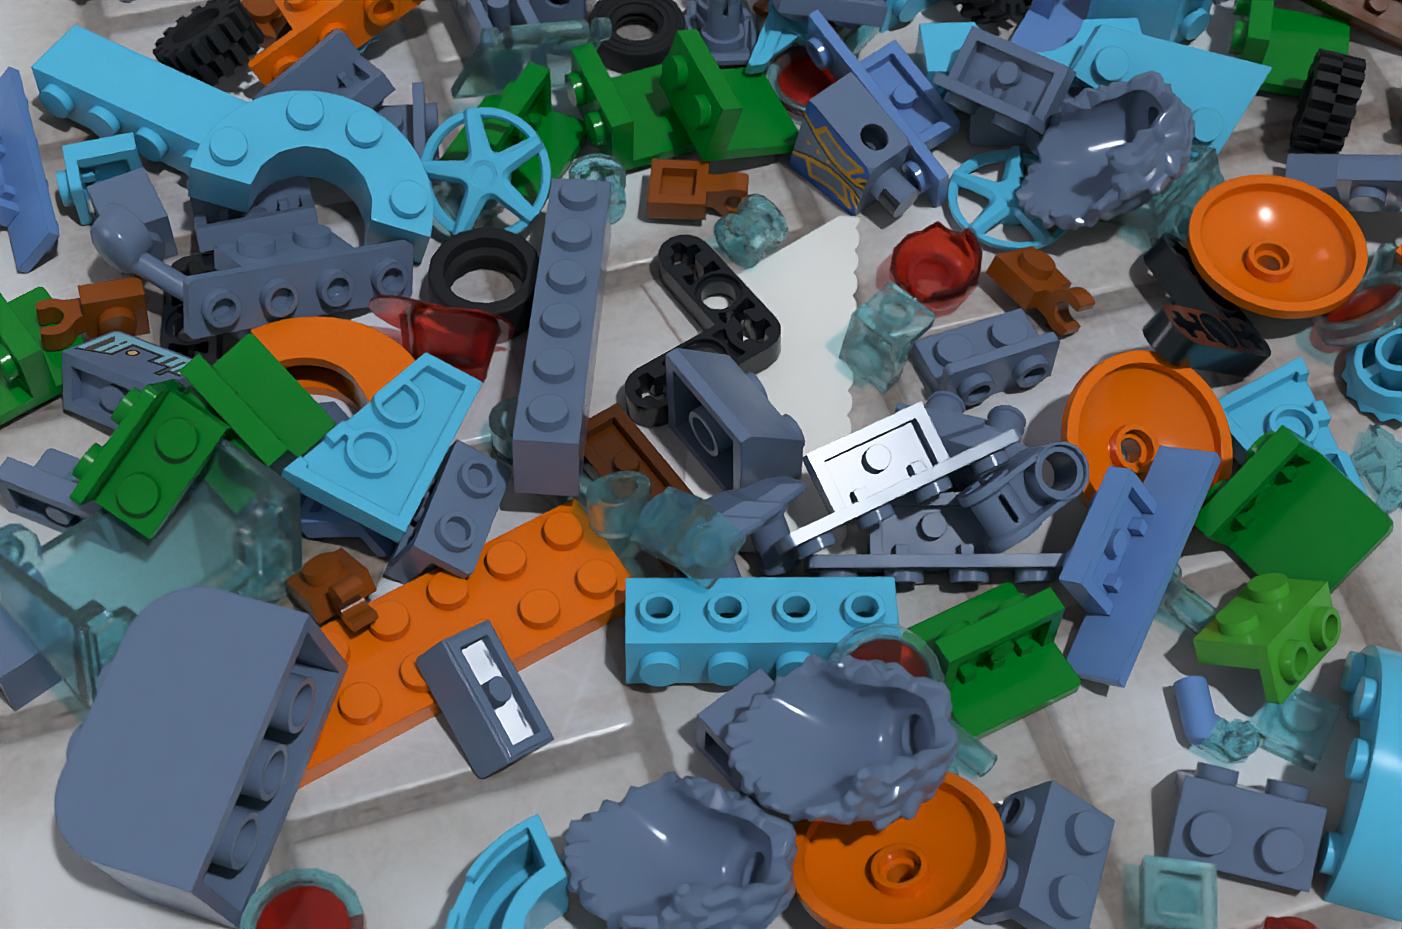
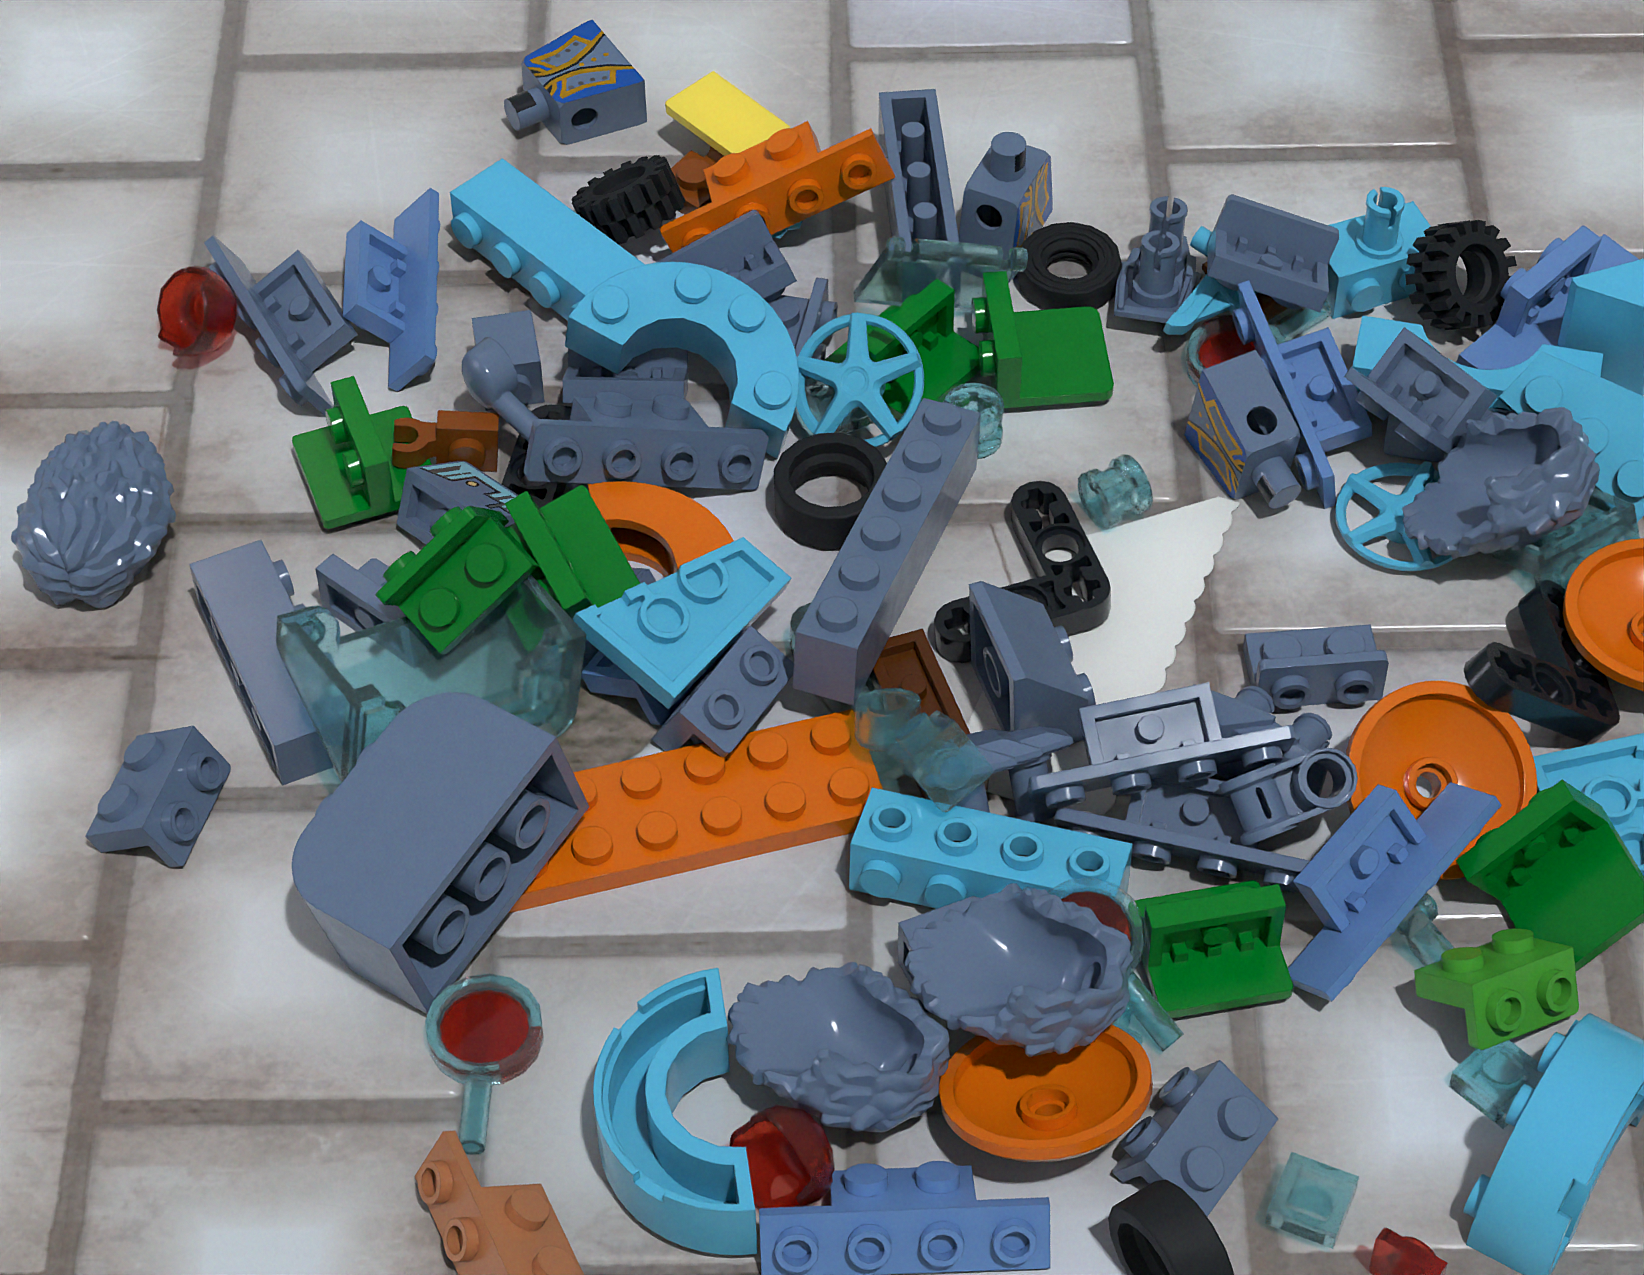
camera: 20 degrees right, 5 degrees down
(92, 163) = (485, 296): medium azure bracket -> none
(333, 586) = (598, 737): dark orange plate -> none
(452, 334) = (777, 528): clear red piece -> none
(483, 699) = (707, 867): sand blue slope -> none
(687, 188) = (1065, 436): dark orange plate -> none
(723, 109) = (1128, 365): green bracket -> none
(883, 335) = (1207, 617): clear light blue bracket -> none
(937, 266) = (1292, 566): clear red hair -> none
(1035, 282) = (1396, 602): dark orange plate -> none
(1203, 728) = (1407, 1063): arm -> none
(1245, 829) = (1405, 1156): sand blue bracket -> none

